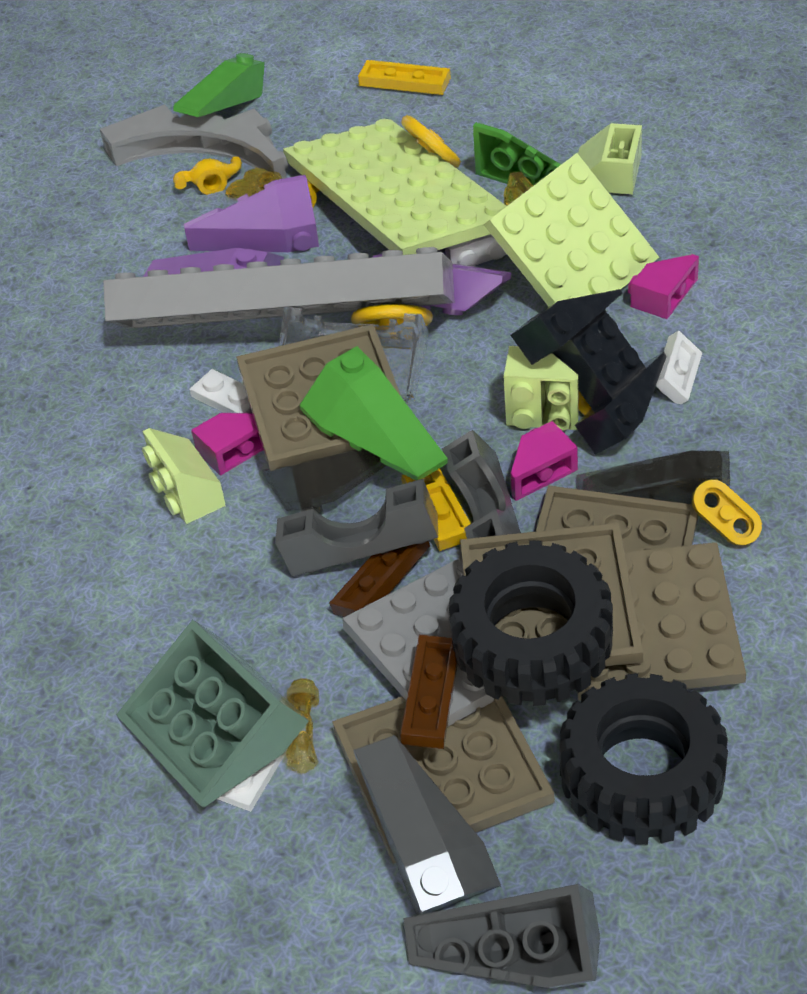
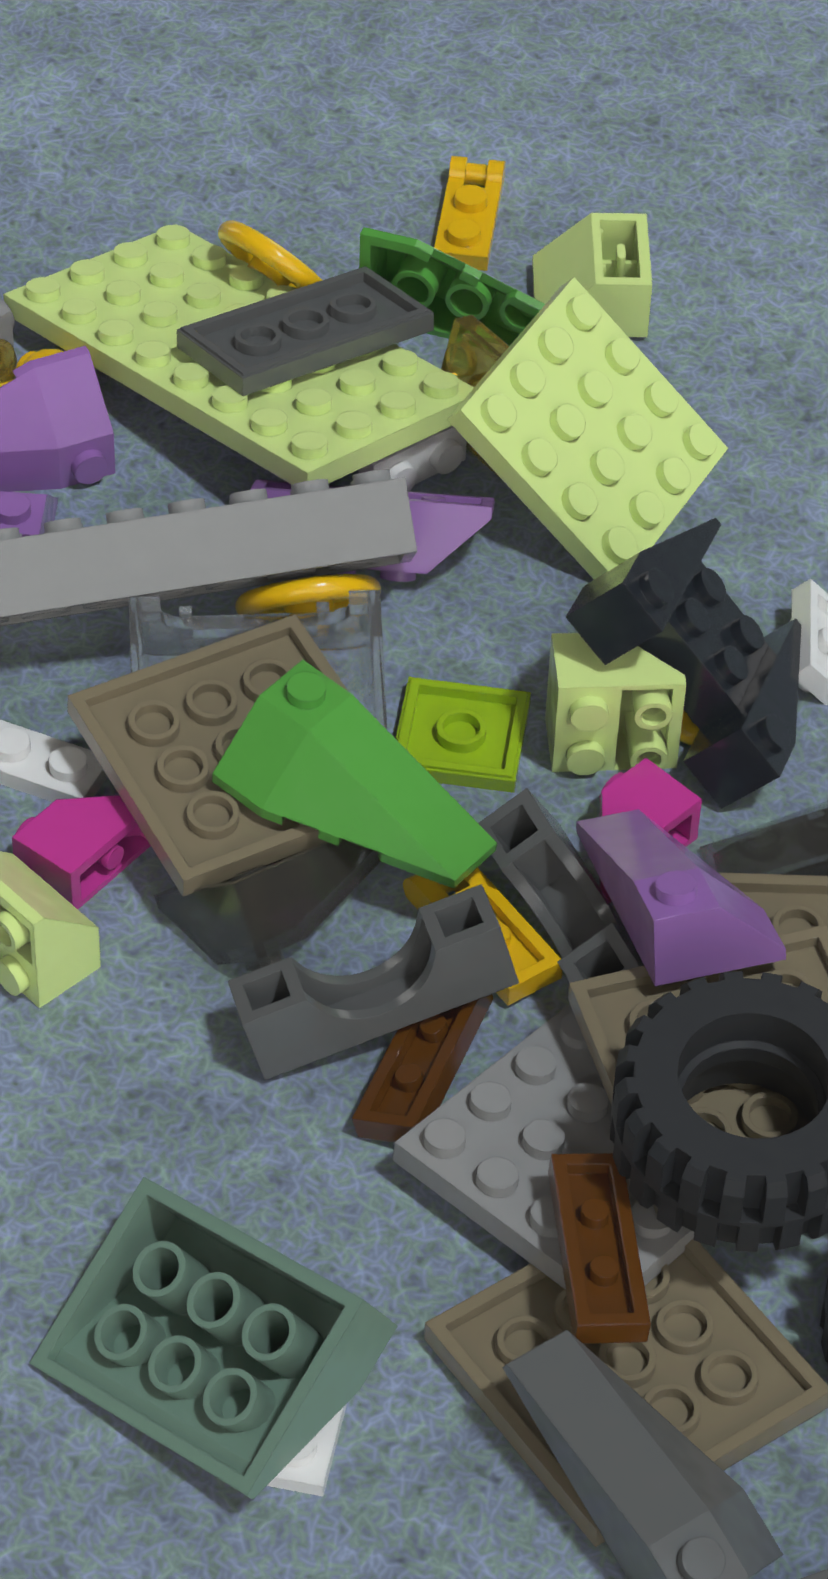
camera: 20 degrees left, 0 degrees up
(301, 752) = (386, 1388): clear yellow piece -> none
(404, 77) = (176, 141): yellow plate -> none
(429, 175) = (304, 330): none -> dark grey tile
(460, 400) = (465, 732): none -> lime tile
(537, 501) = (674, 904): none -> medium lavender wedge
(553, 122) = (470, 211): none -> yellow plate
(663, 285) = (753, 498): dark pink slope -> none

